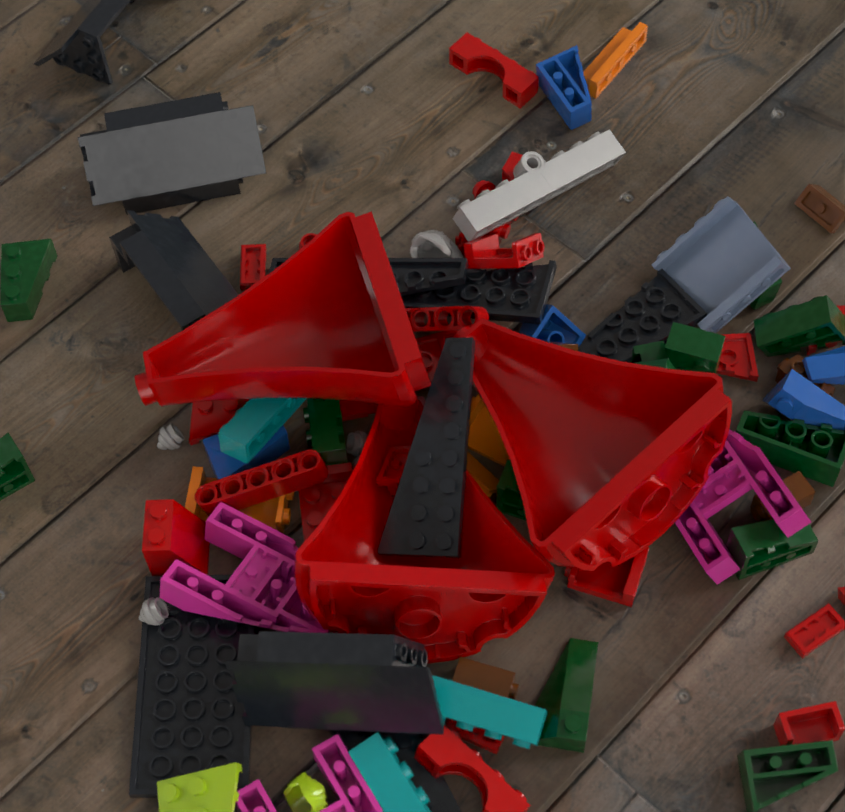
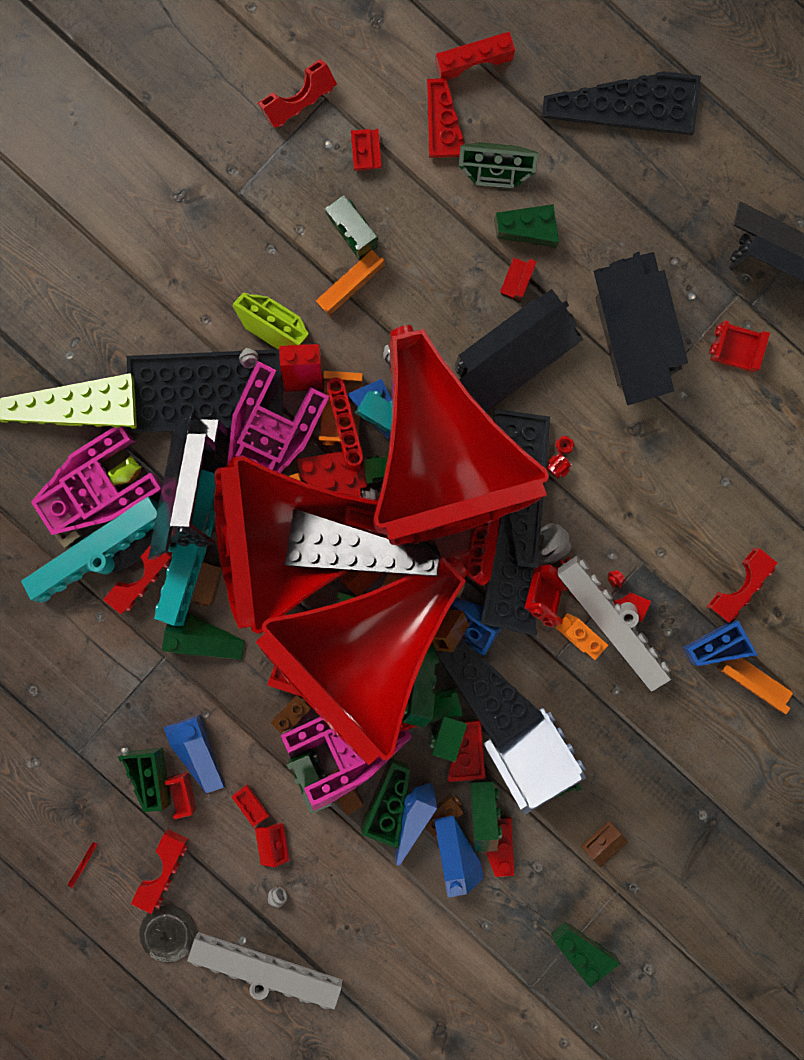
camera: 85 degrees right, 30 degrees up
(65, 488) = (350, 282): none -> orange panel
(90, 291) = (517, 278): none -> red panel
(107, 584) = (270, 320): none -> lime wedge
(207, 69) = (739, 347): none -> red panel
(252, 264) = (543, 402): red plate -> none
(548, 211) = (581, 636): none -> orange panel
(675, 570) = (290, 714): none -> reddish brown brick
(736, 709) = (194, 749): none -> blue wedge

